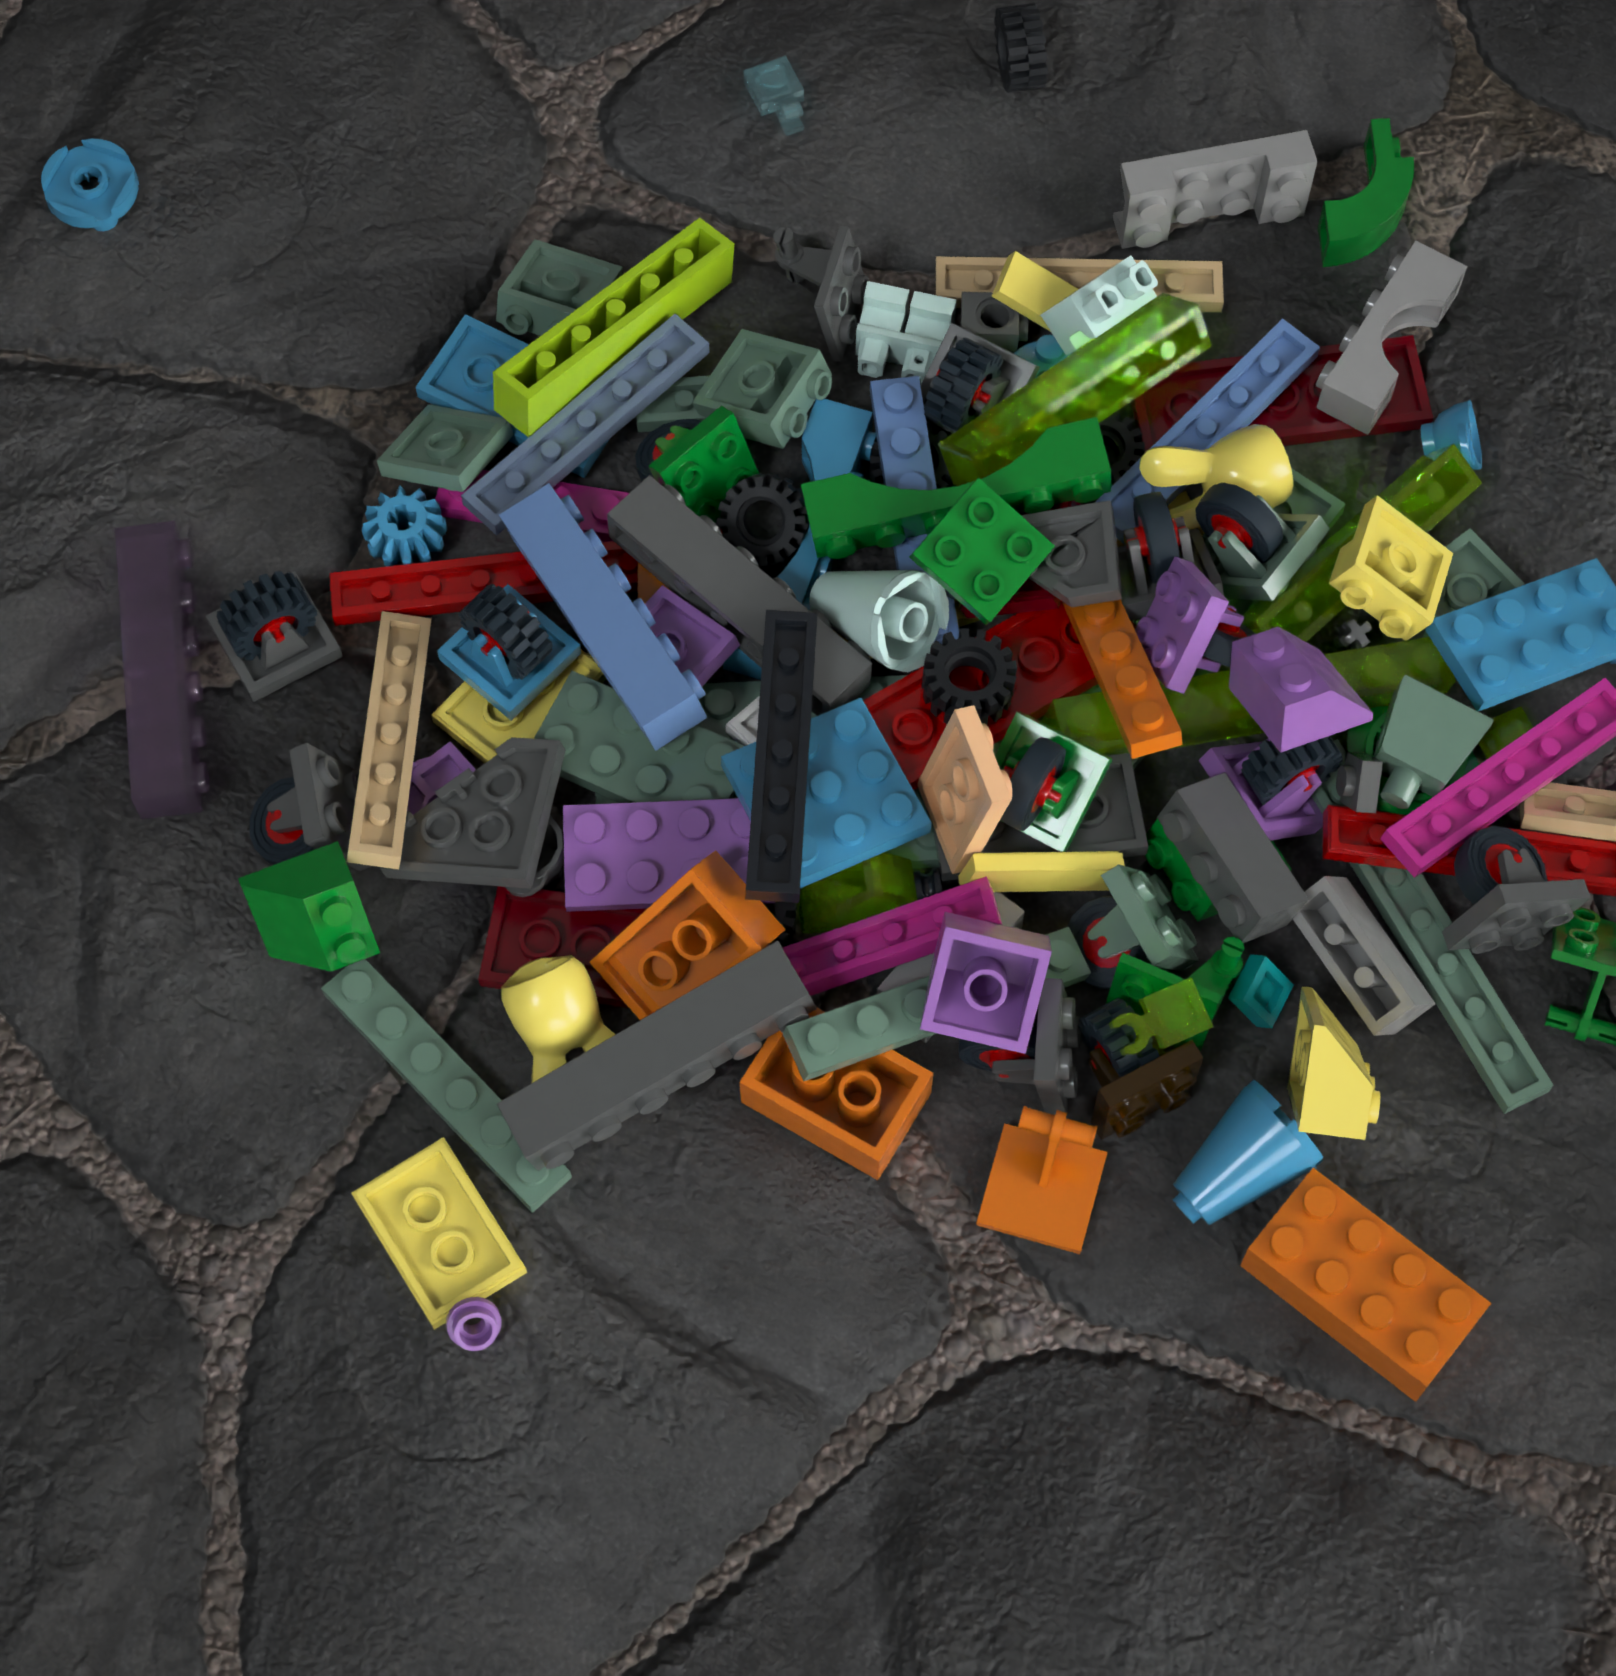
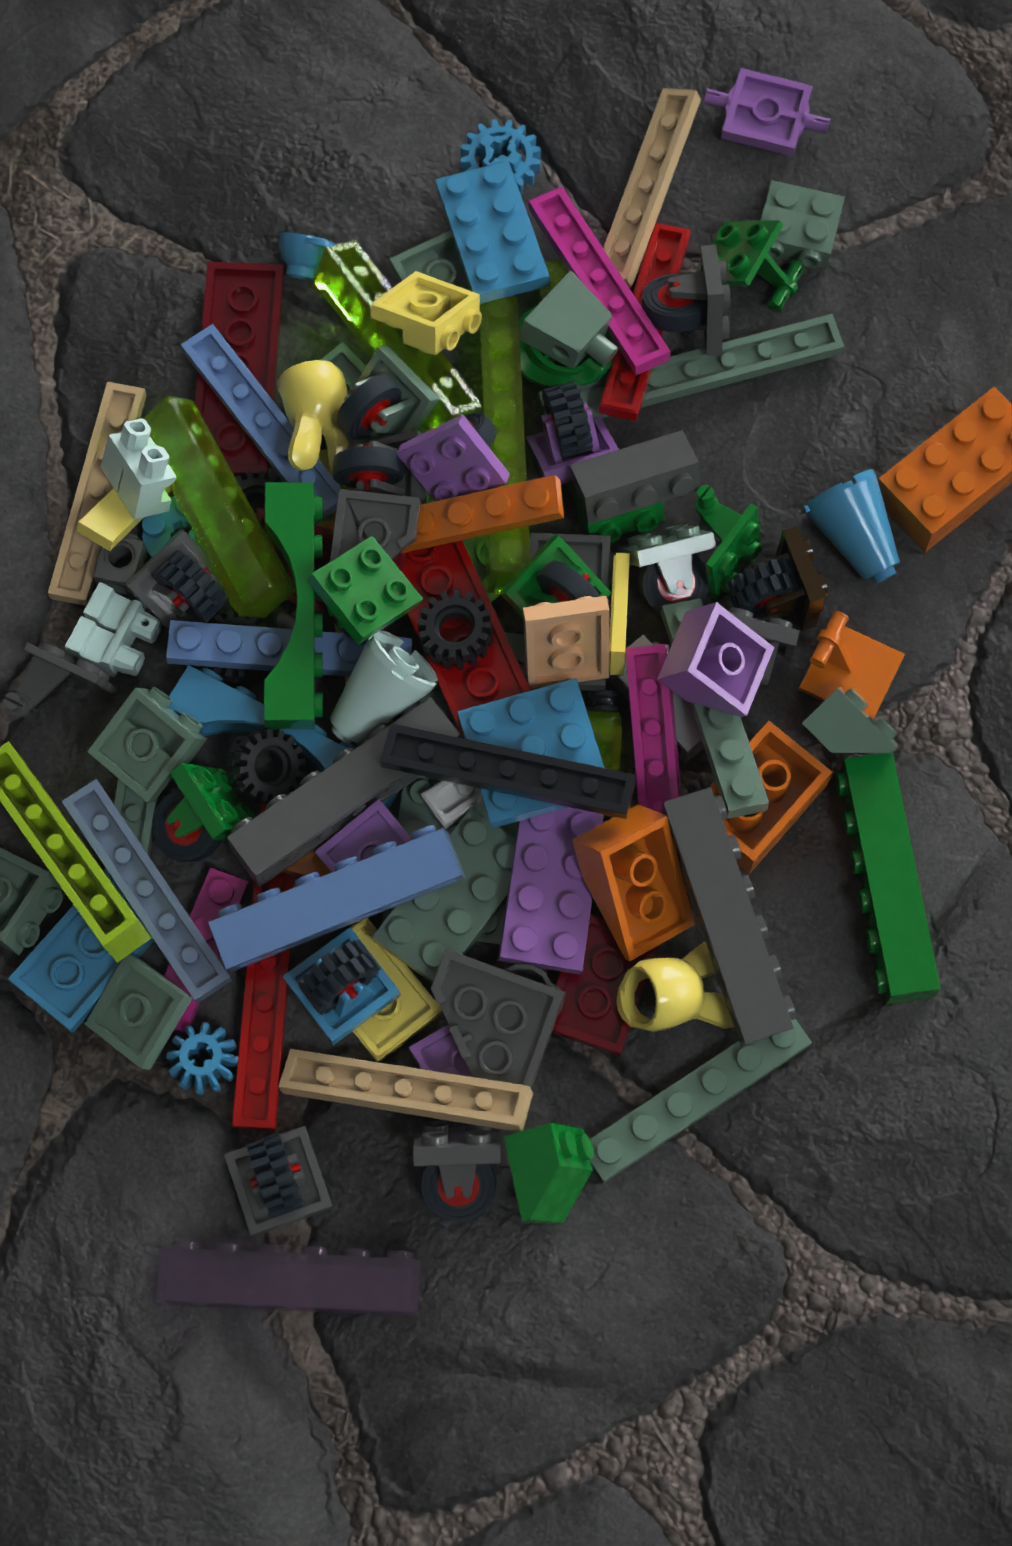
camera: 80 degrees left, 5 degrees up
(438, 1231) = (818, 1117): light yellow tile -> none
(475, 1336) = (900, 1098): medium lavender plate -> none
(763, 1268) = (888, 879): none -> green brick
(949, 1179) = (847, 728): none -> sand green slope
(1169, 1016) = (766, 540): clear neon green plate -> none
(1227, 179) = (46, 335): light grey piece -> none
(1261, 991) = (729, 489): teal plate -> none
(1292, 689) = (527, 396): medium lavender slope -> none
(1328, 1076) = (819, 451): light yellow slope -> none
(1351, 634) = (465, 355): dark grey axle -> none
(1359, 782) = (590, 376): dark grey plate -> none
(1361, 957) = (720, 411): light grey brick -> none
(1365, 221) = (78, 253): green arch -> none
(1416, 295) = (246, 301): light grey arch -> none

